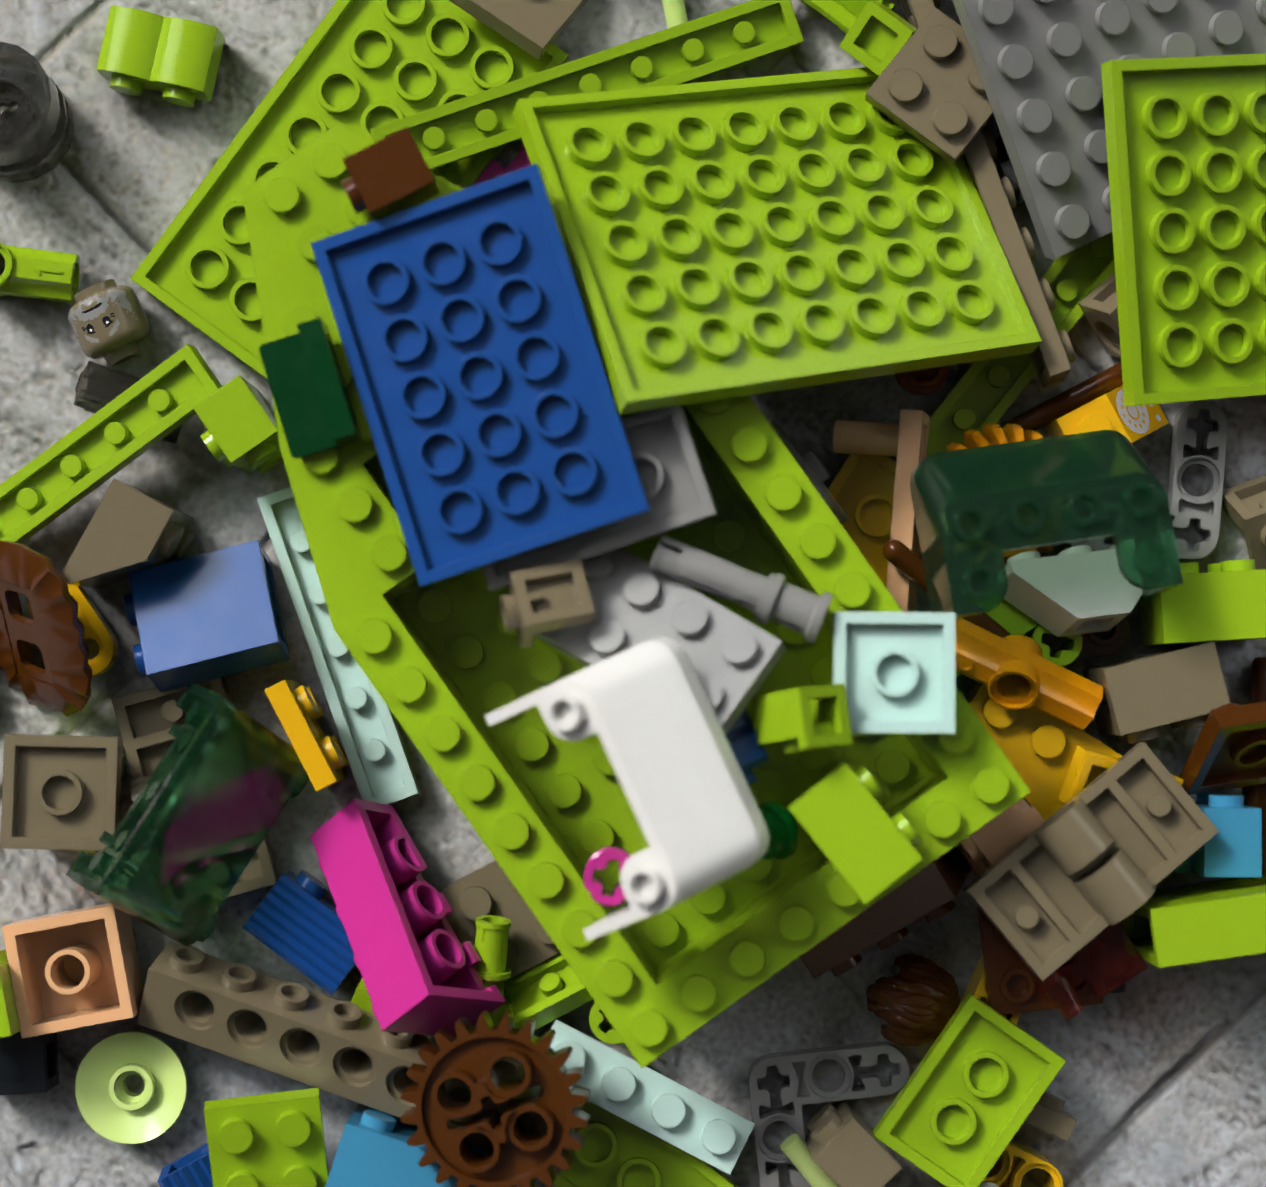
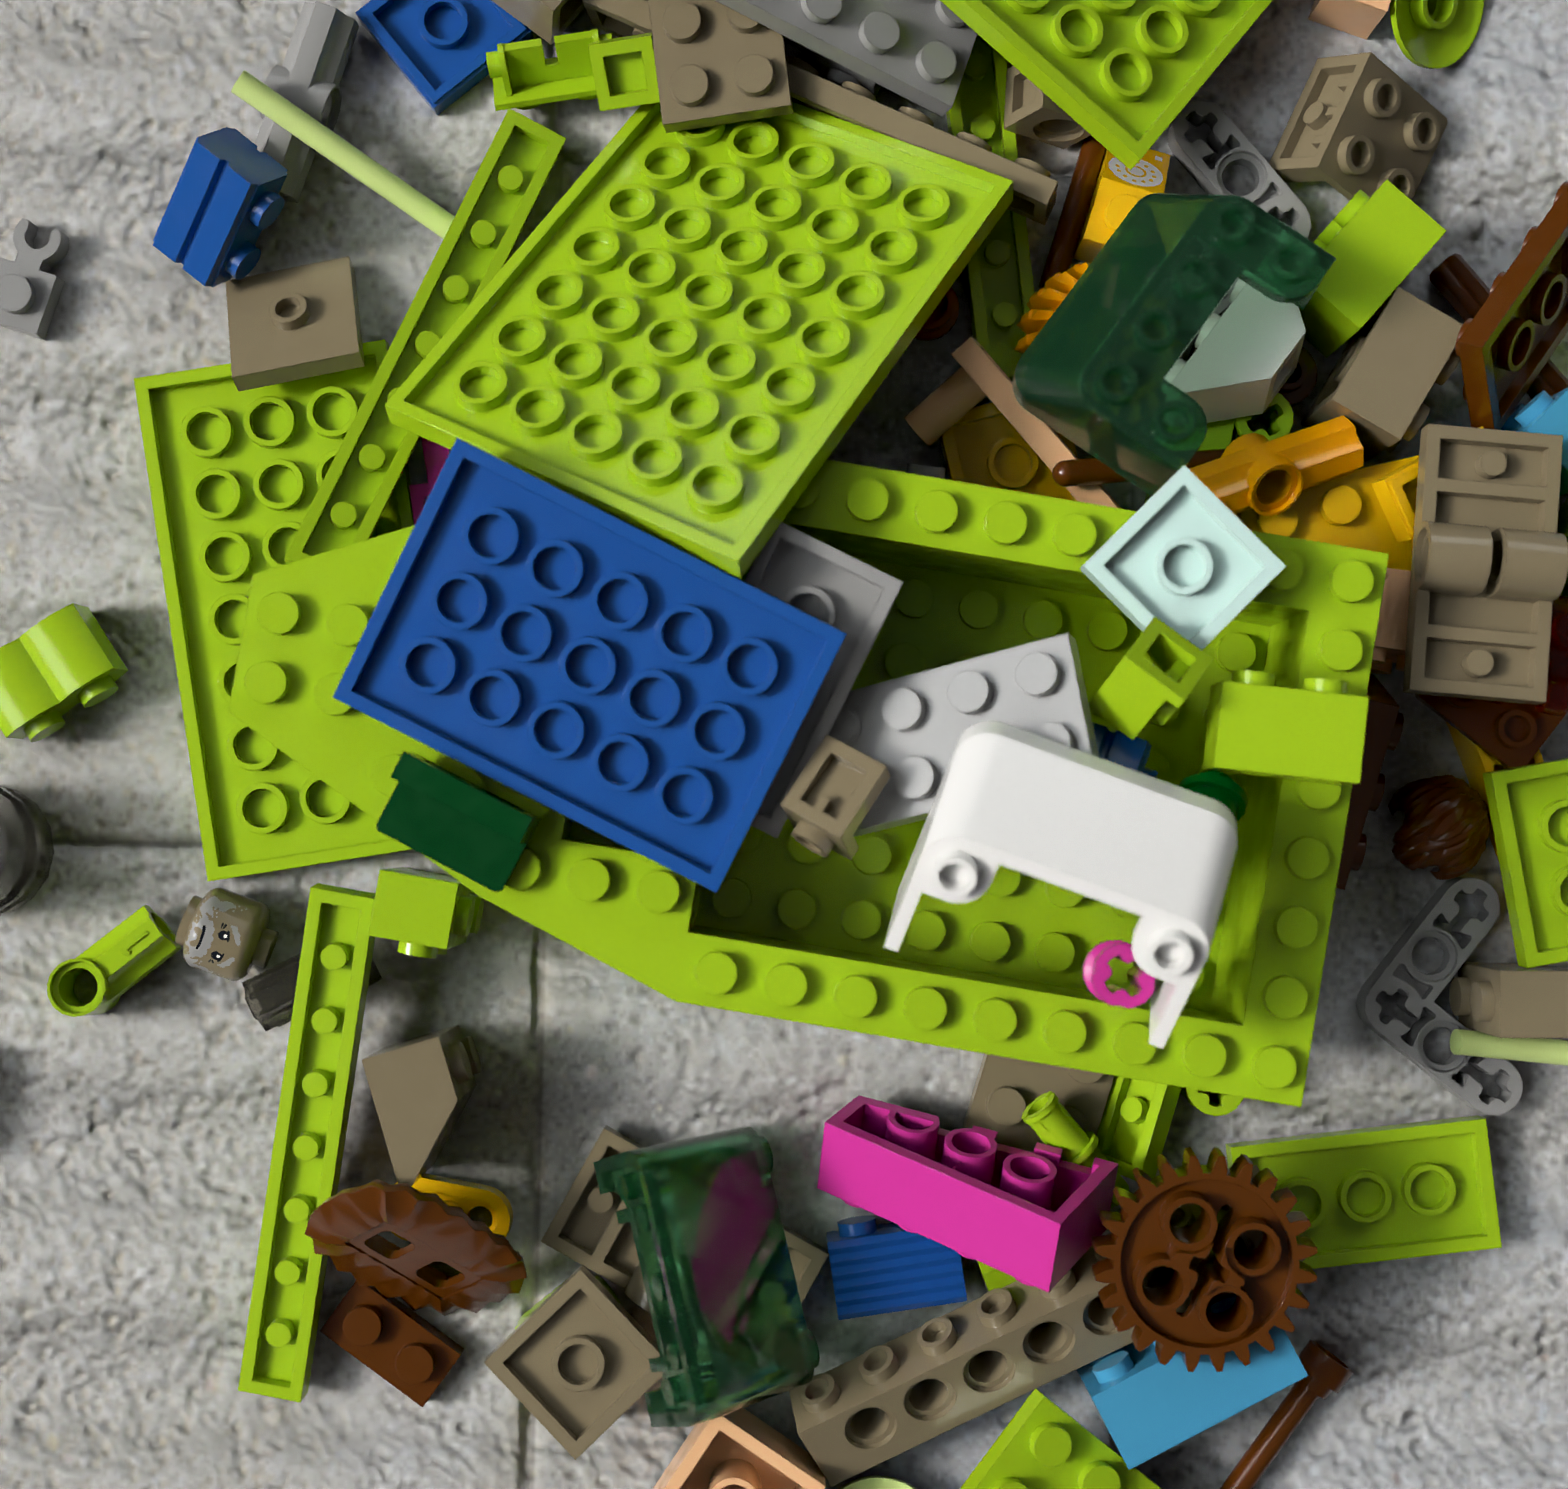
camera: 50 degrees left, 0 degrees up
(206, 616) = (551, 1095): brick -> none
(298, 713) = (761, 1114): yellow plate -> none
(359, 712) = (747, 1043): light aqua plate -> none
(388, 176) = (341, 574): reddish brown brick -> none
(655, 1101) = (1328, 1121): light aqua plate -> none
(767, 596) = (1015, 609): light grey pin -> none

